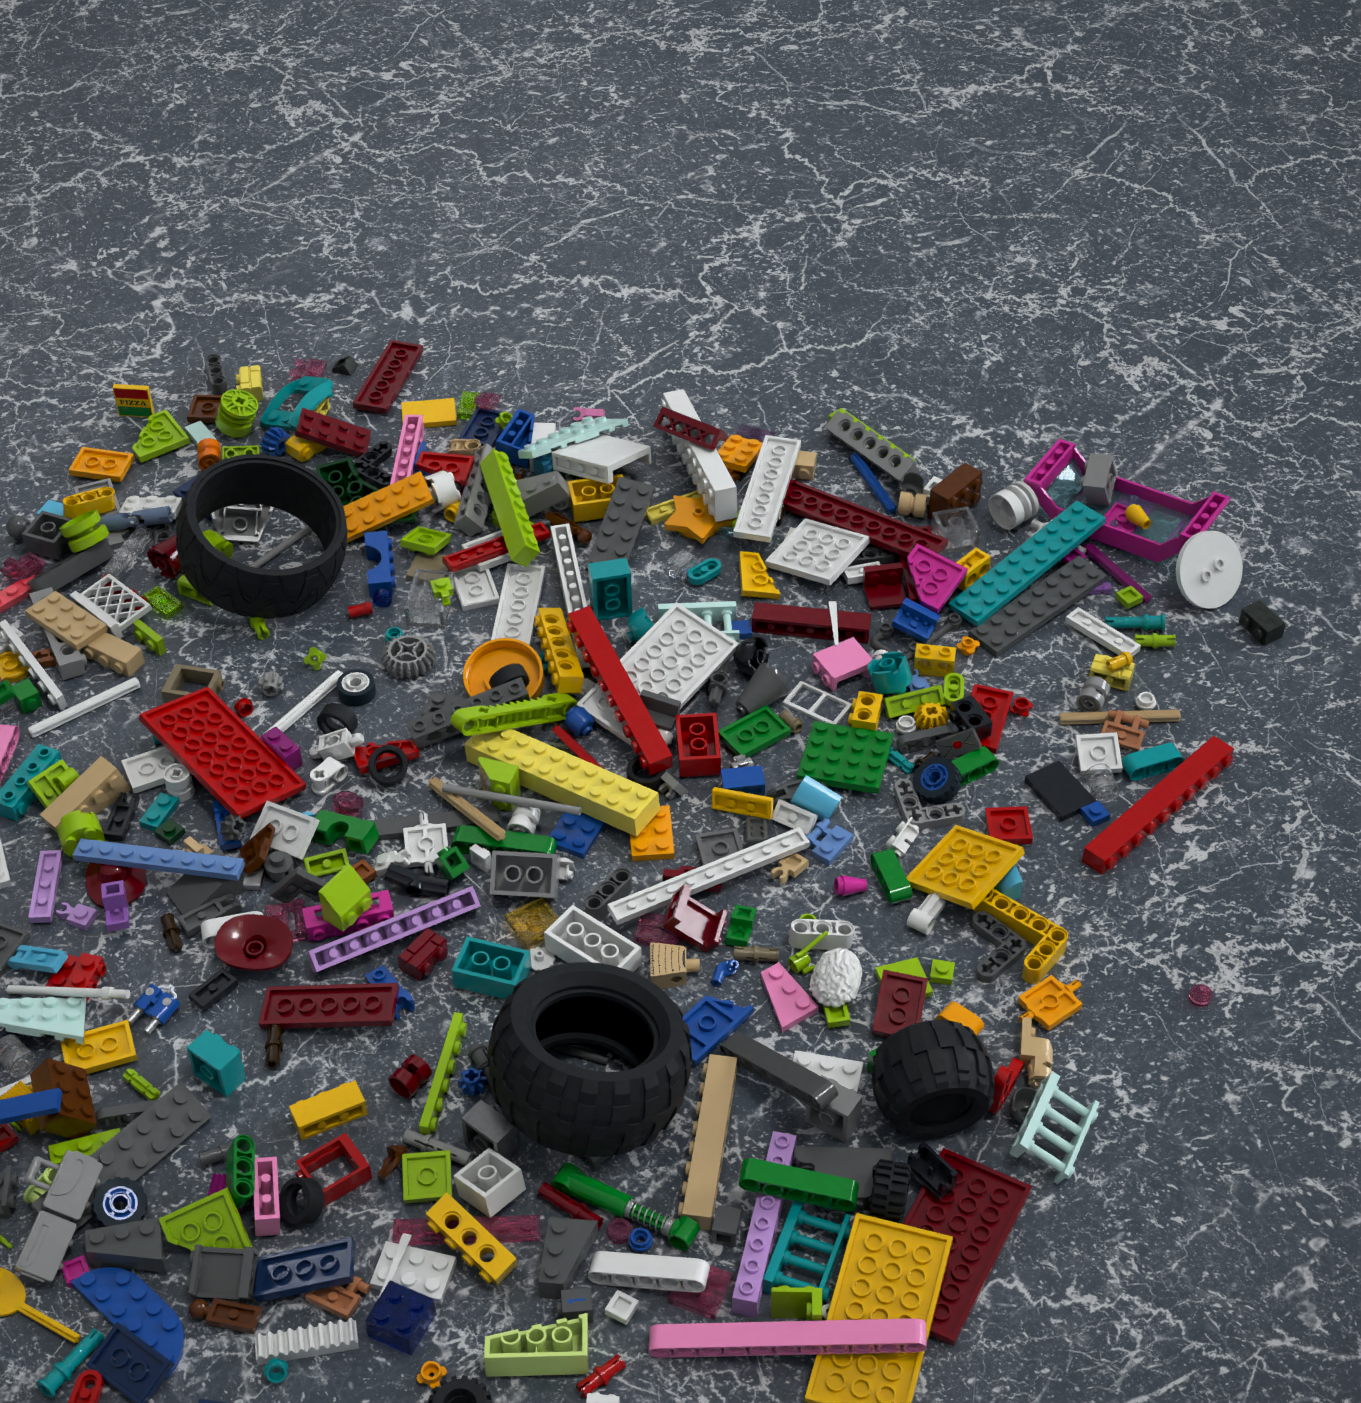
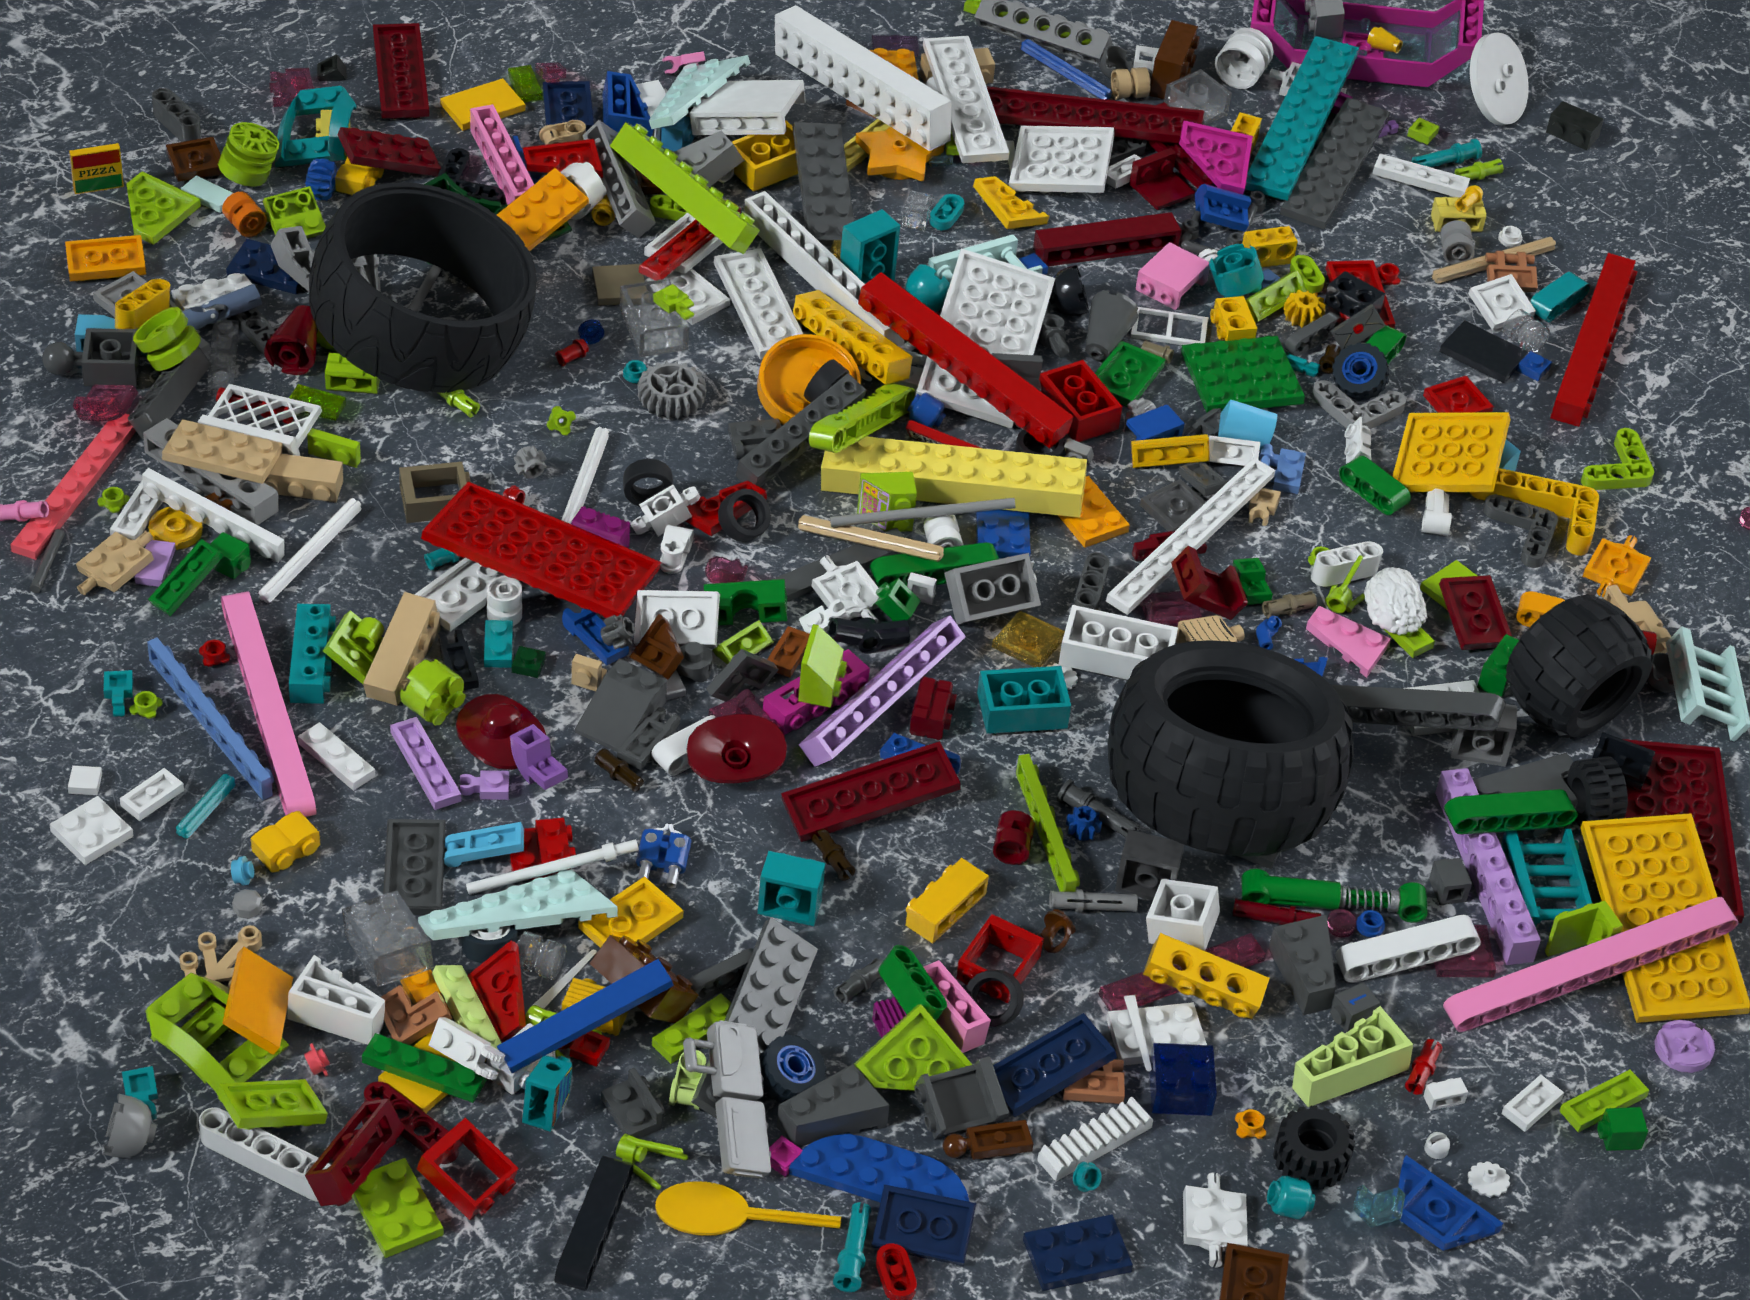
camera: 30 degrees left, 0 degrees up
(141, 1085) = (710, 941): lime axle -> none
(159, 859) = (559, 689): medium blue plate -> none
(213, 989) = (717, 815): black plate -> none
(250, 380) = (225, 112): light yellow brick -> none
(356, 687) = (634, 440): black wheel -> none
(377, 549) = (572, 306): blue arch -> none
(425, 540) = (596, 252): lime plate -> none
(426, 1176) = (1107, 932): lime plate -> none
(503, 419) = (593, 90): lime plate -> none
(583, 535) = (735, 194): reddish brown plate -> none
(621, 1307) = (1399, 994): white plate -> none
(690, 424) = (848, 41): dark red fence -> none
(709, 1141) = (1384, 819): tan brick -> none
(833, 612) = (1126, 215): white sticker -> none
(849, 885) = (1335, 507): dark pink cone -> none
(905, 724) = (1281, 324): white plate -> none
(942, 972) = (1489, 565): lime plate -> none
(967, 646) = (1290, 220): light orange plate -> none
(1115, 571) = (1396, 110): magenta axle -> none
(1122, 922) = (1634, 472): none -> lime beam

